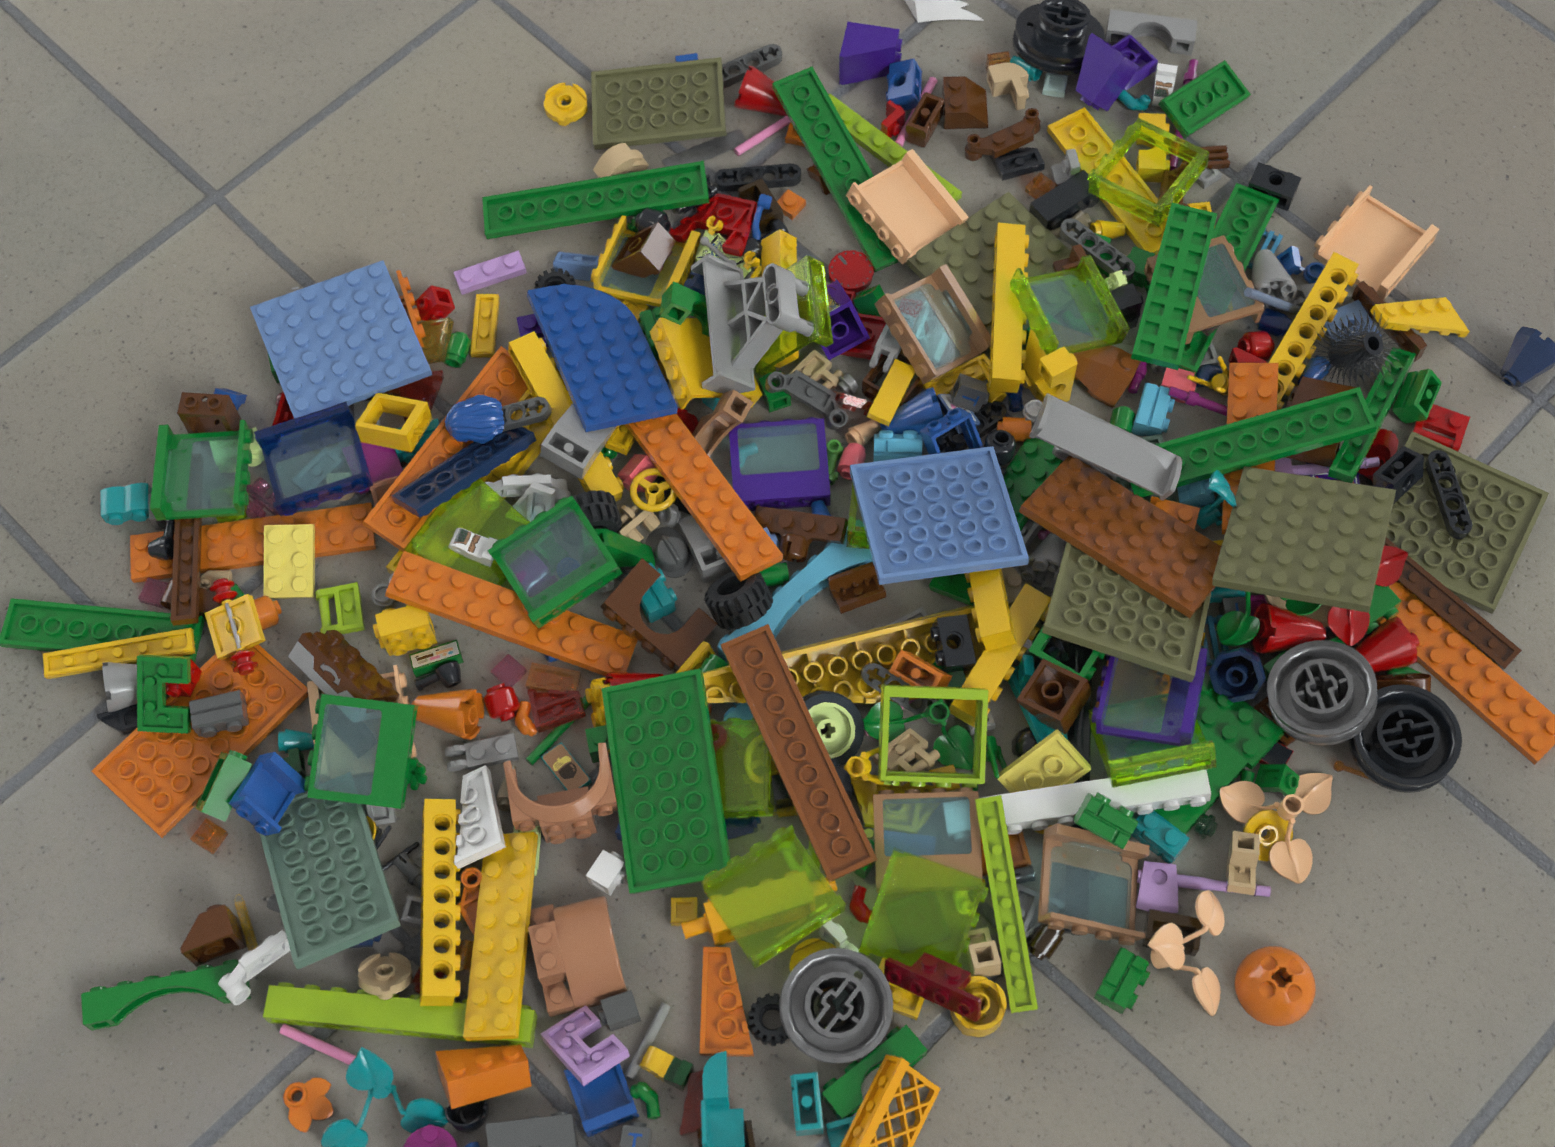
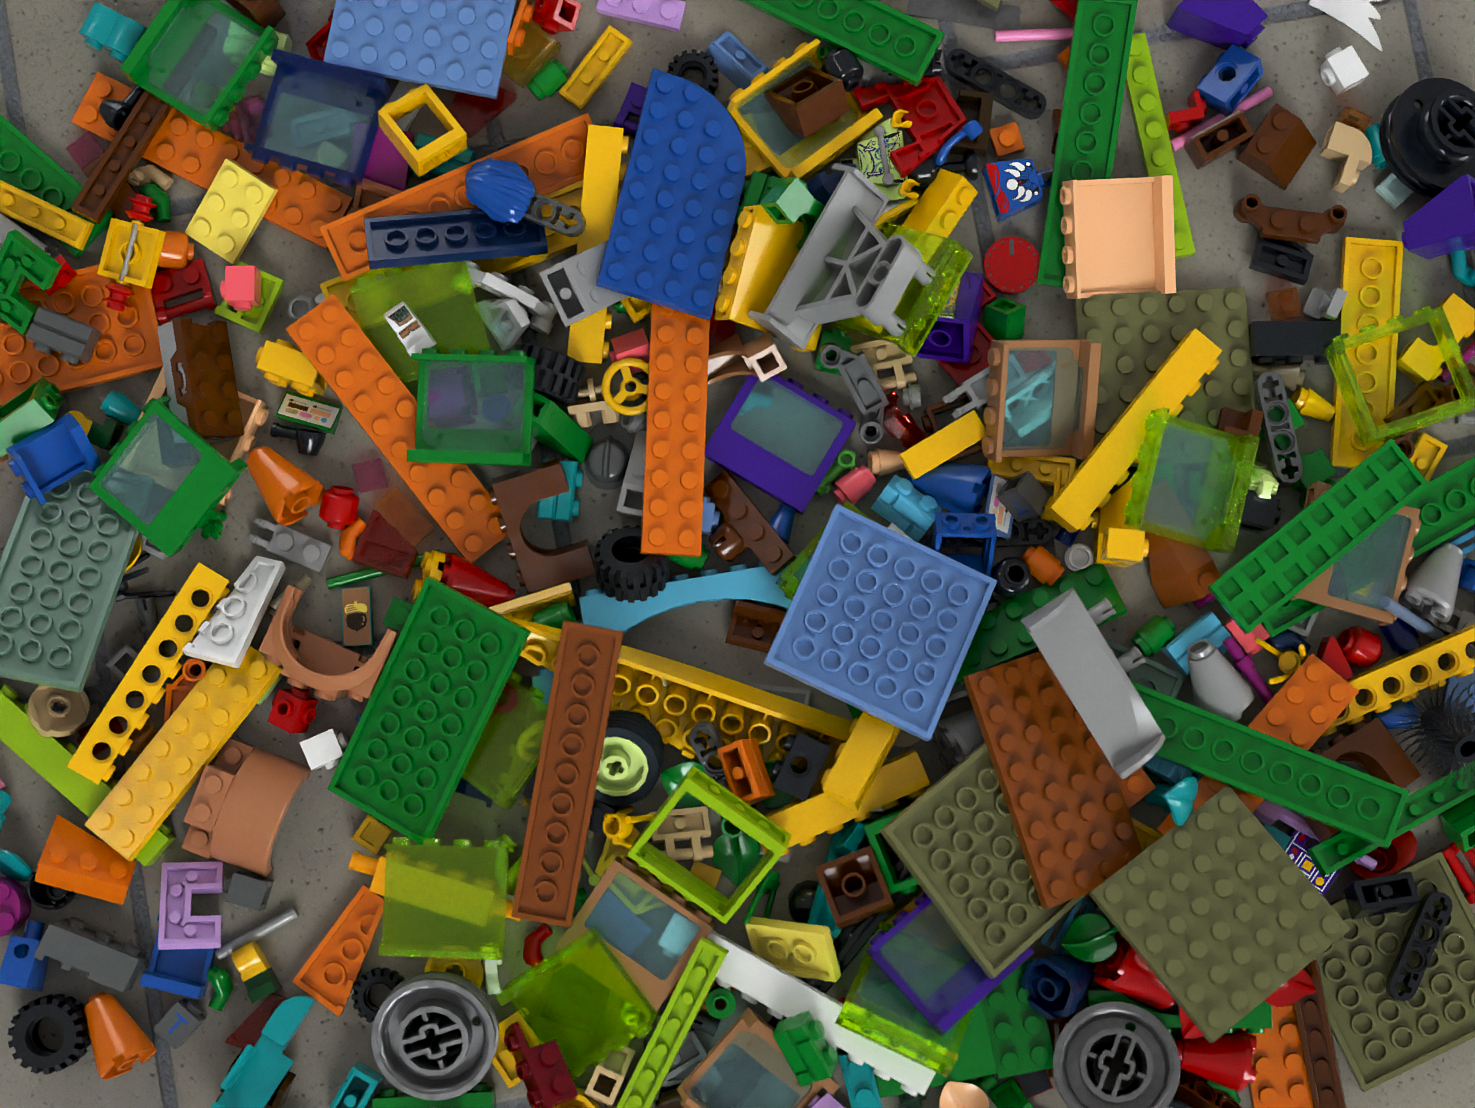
camera: 30 degrees right, 20 degrees up
(282, 633) = (177, 283): none -> red plate
(331, 600) = (242, 287): none -> coral brick
(564, 858) = (293, 710): none -> red brick
(816, 224) = (1014, 186): none -> torso
(969, 40) = (1343, 70): none -> white brick
(1019, 851) = (716, 993): none -> green brick
(1181, 415) = (1216, 682): none -> light grey cone

